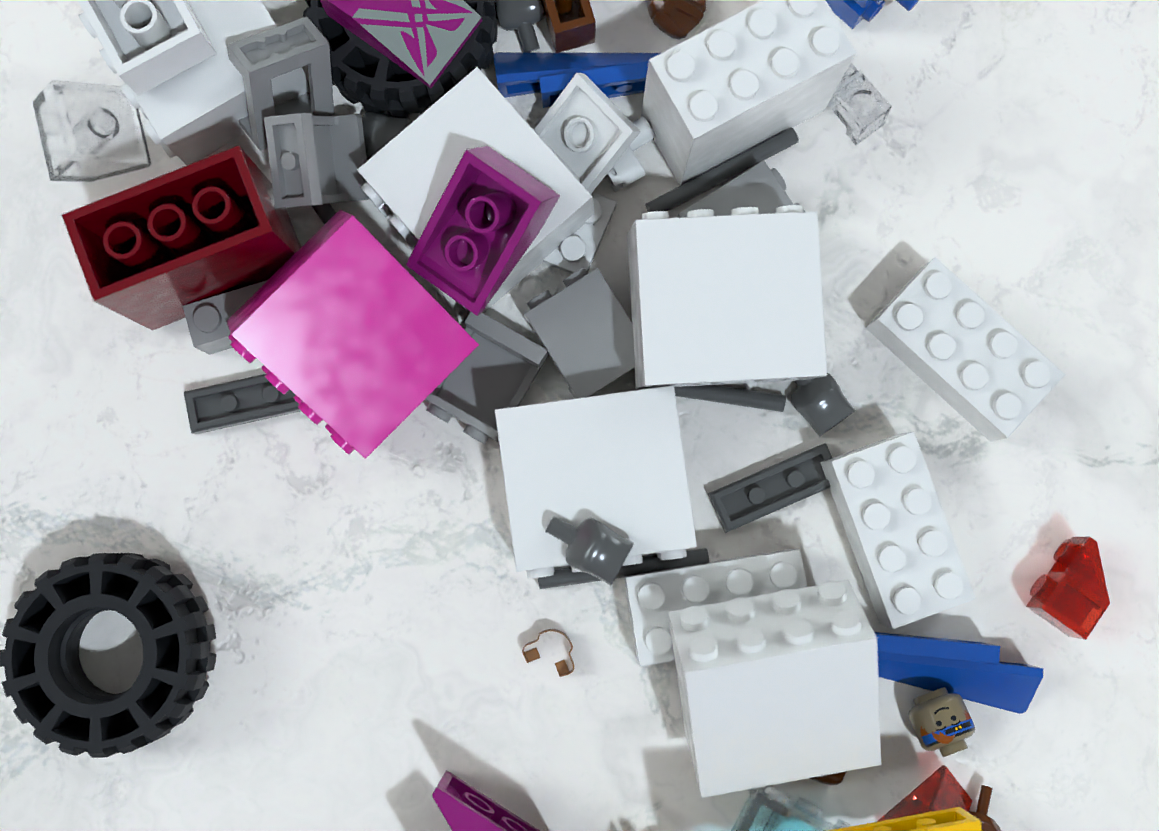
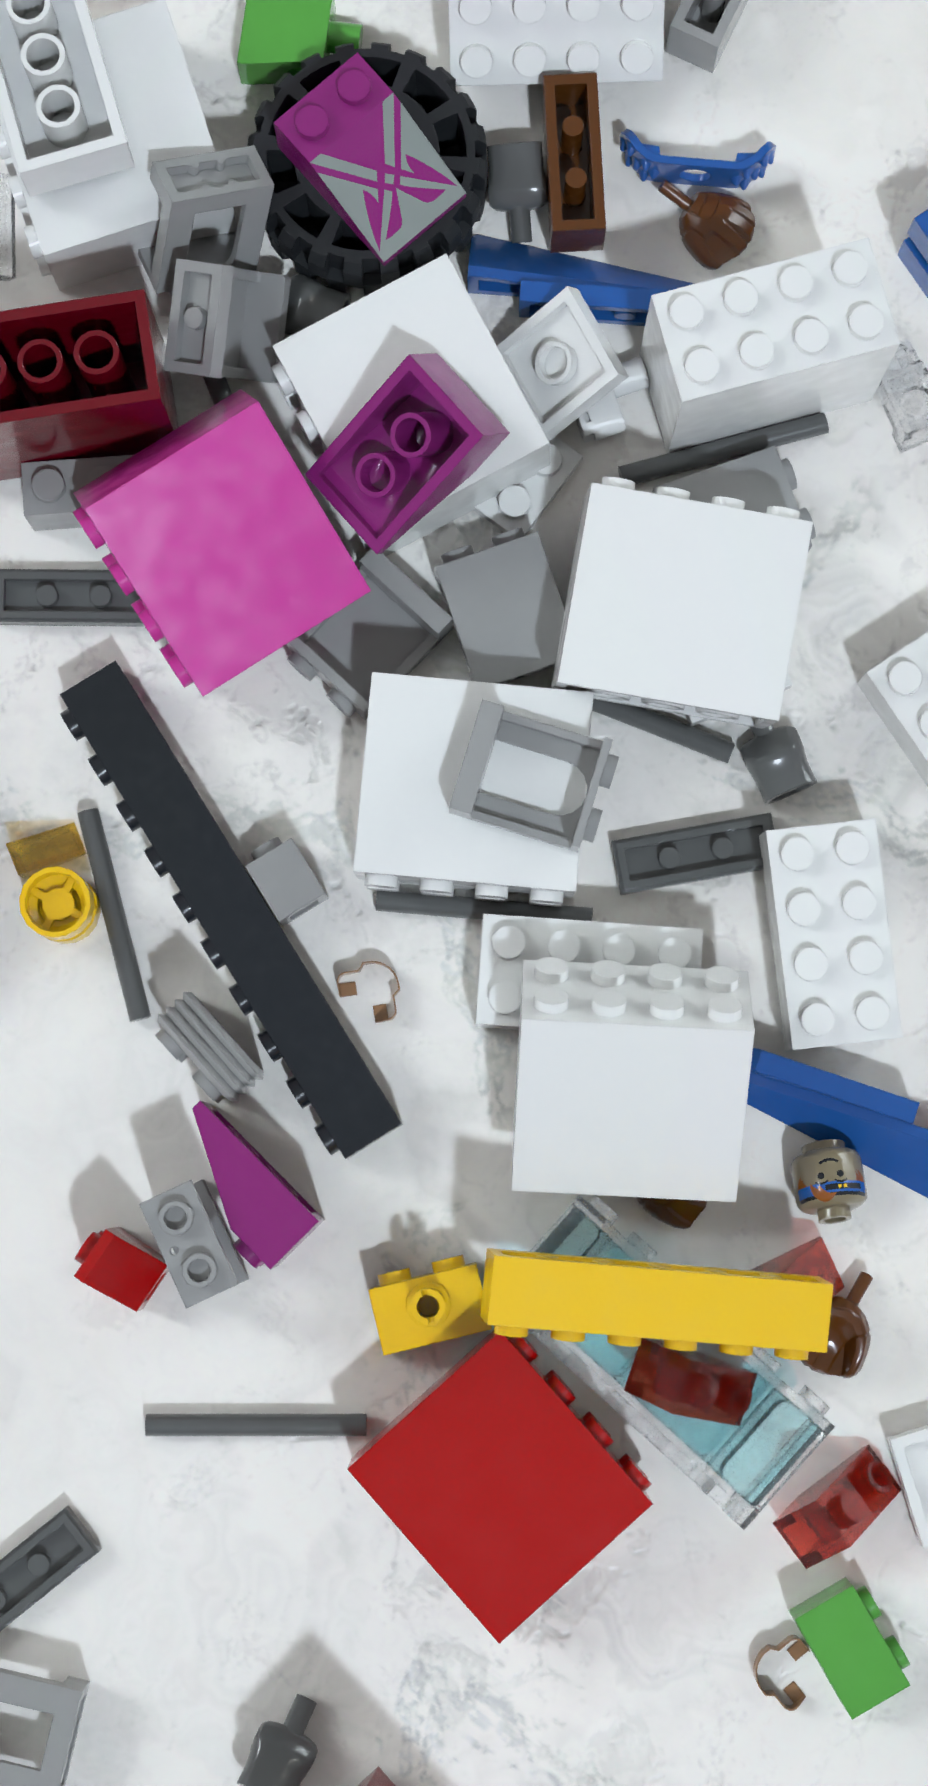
camera: 15 degrees right, 0 degrees up
(272, 602) = (46, 849): none -> clear yellow piece
(291, 646) = (59, 905): none -> yellow wheel
(337, 641) = (114, 915): none -> dark grey bar
(428, 620) = (230, 910): none -> black brick
(435, 735) = (197, 1034): none -> light grey brick
(463, 583) = (285, 879): none -> light grey brick
(592, 547) = (450, 861): dark grey piece -> none
(681, 436) = (584, 752): none -> light grey panel

